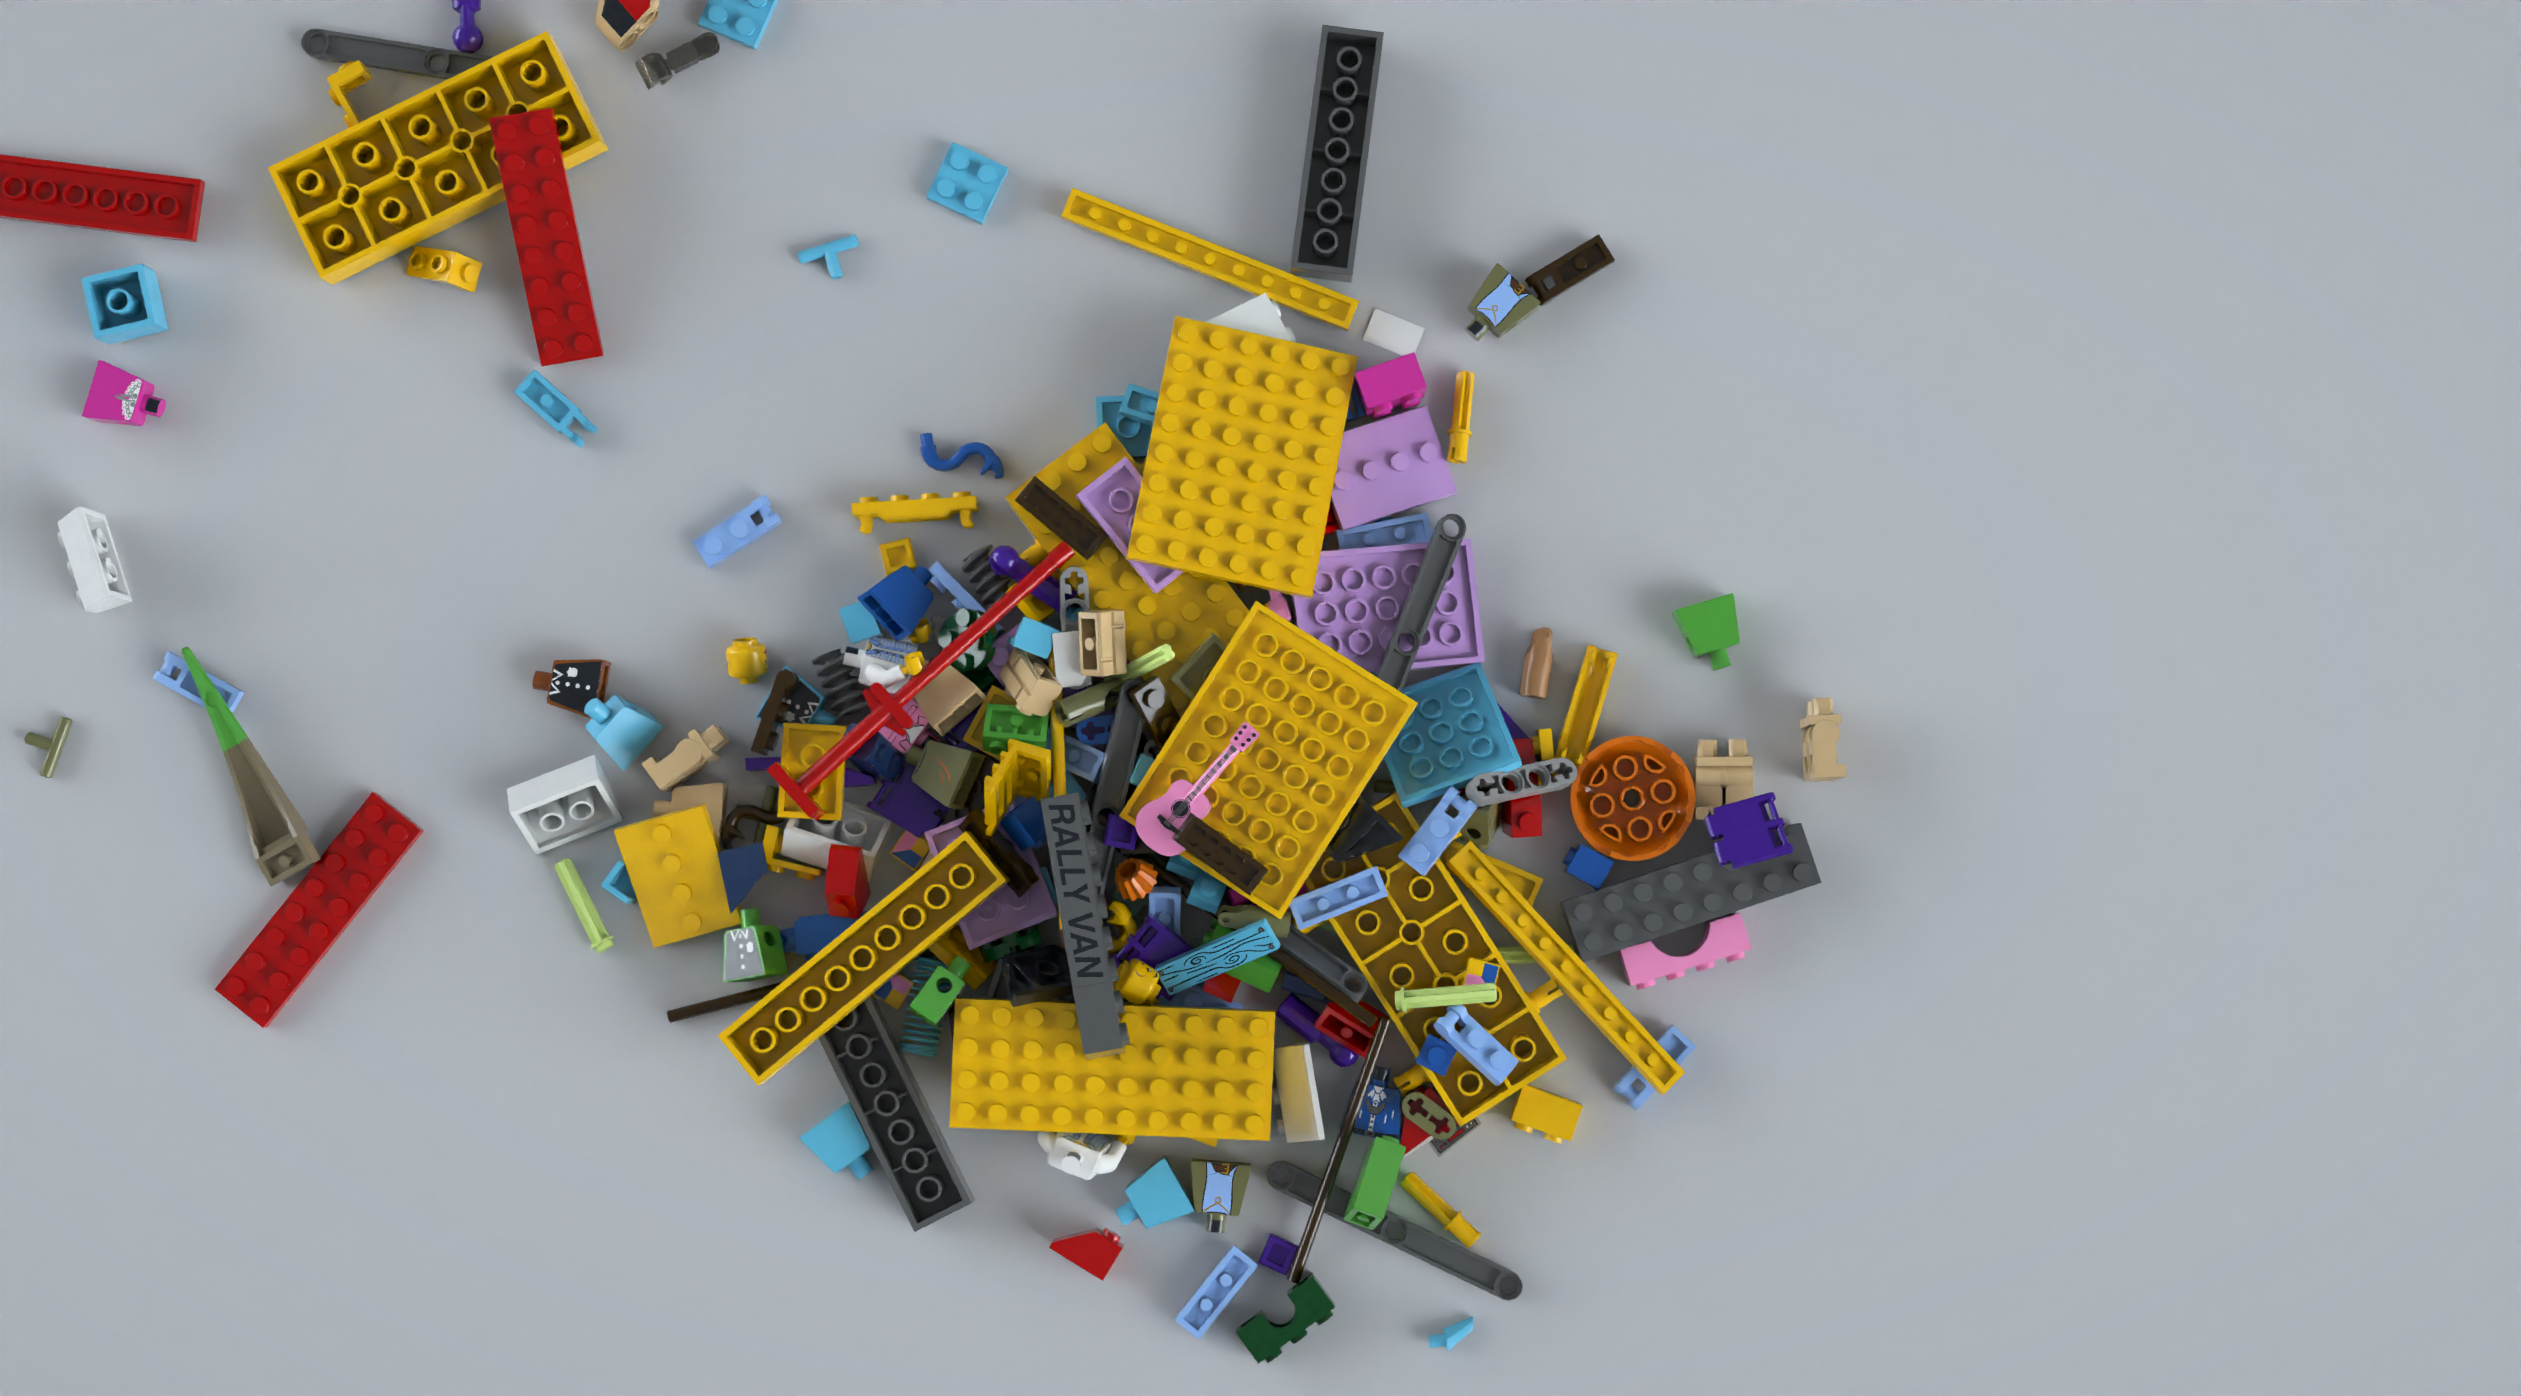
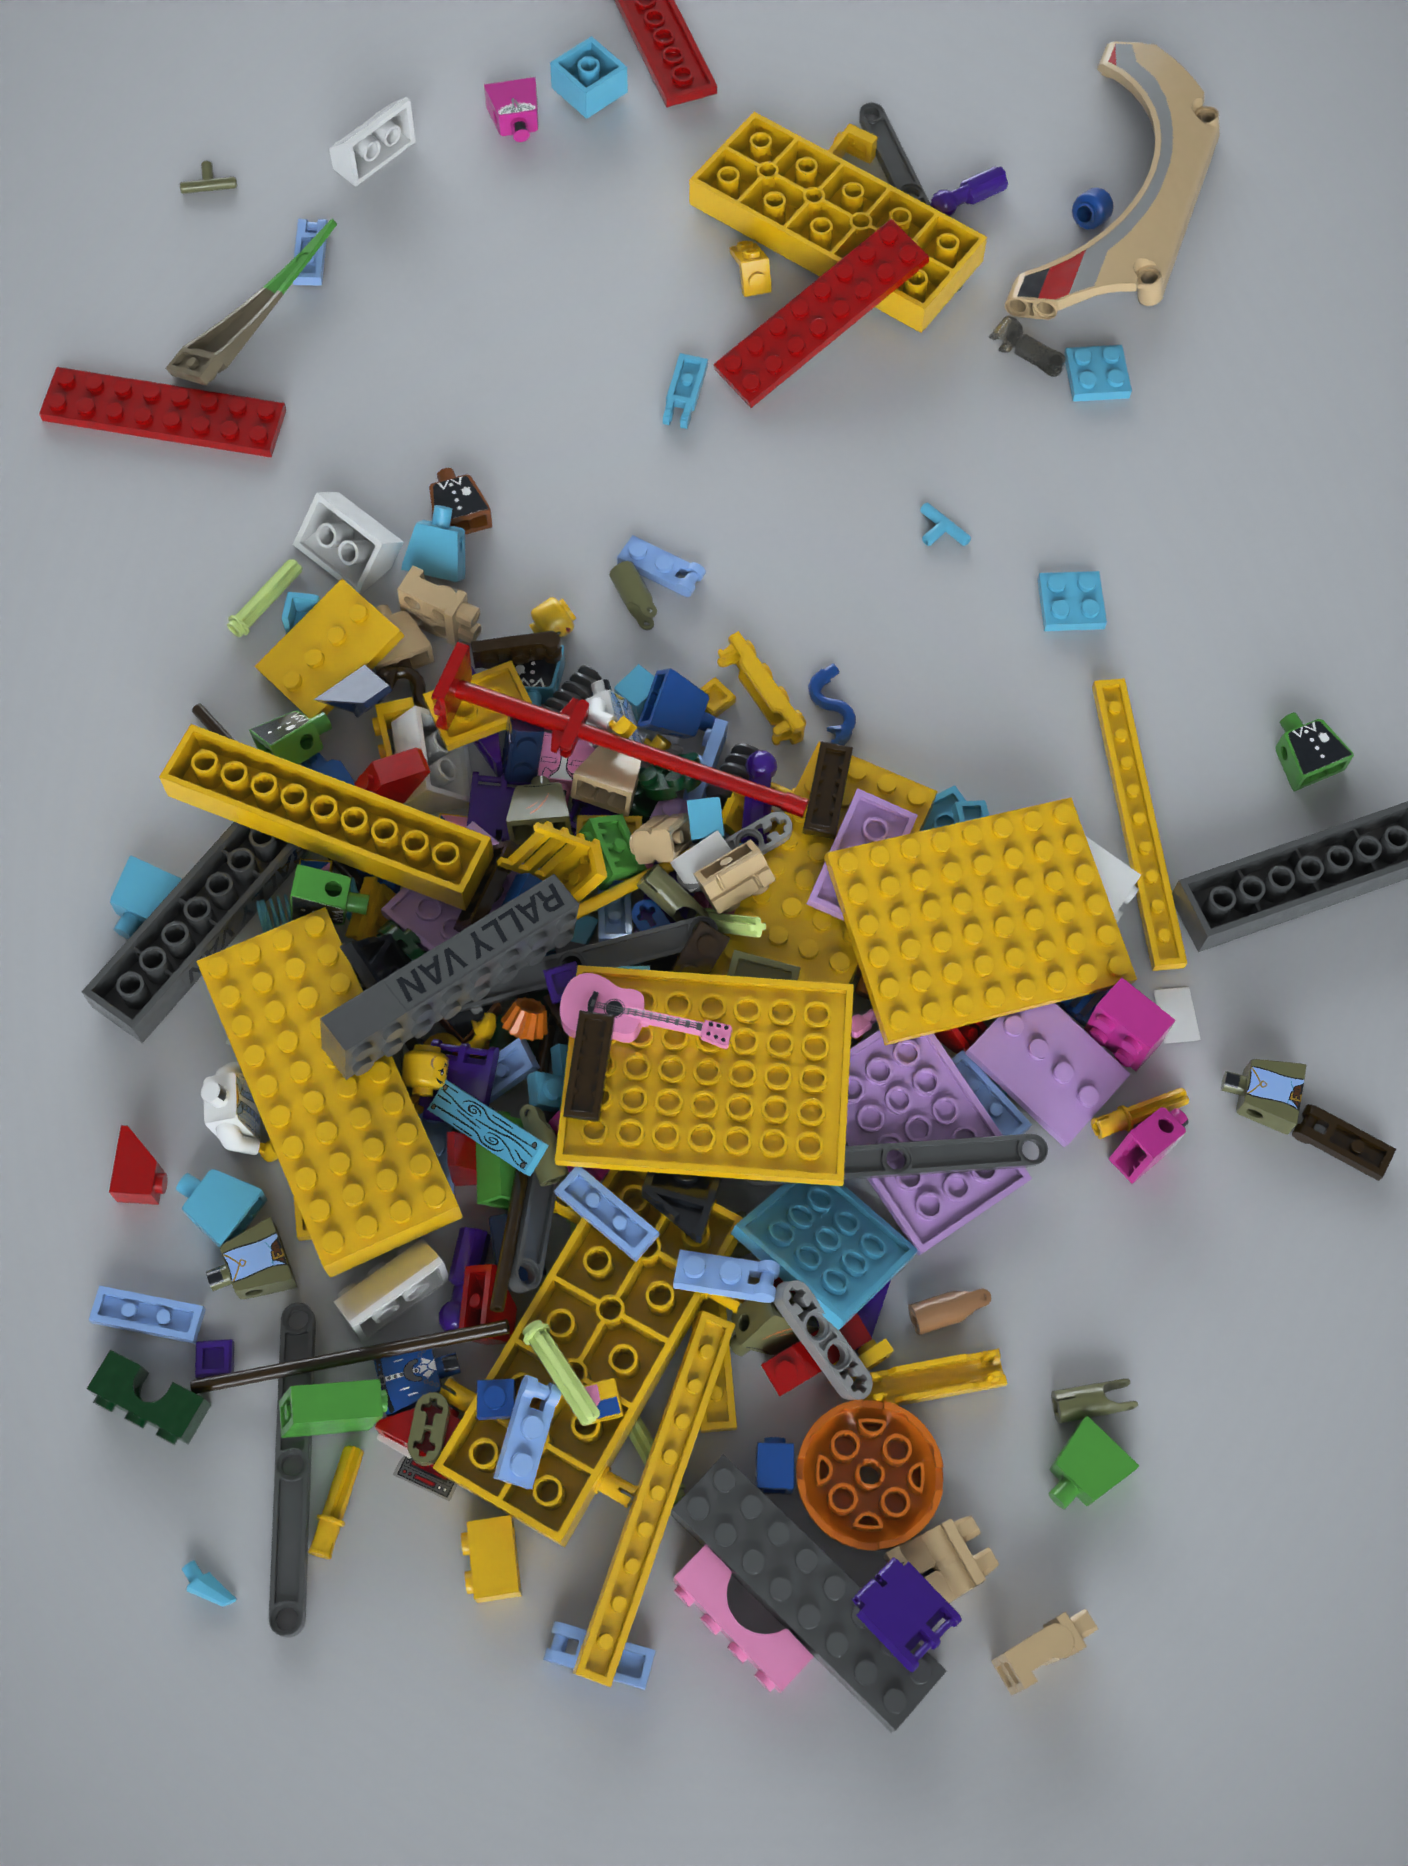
camera: 60 degrees right, 20 degrees down
(756, 571) = (634, 593): none -> olive piece
(1224, 71) = (1310, 751): none -> torso
(1492, 426) = (1155, 1137): none -> dark pink torso
(1662, 600) = (1089, 1401): none -> olive piece

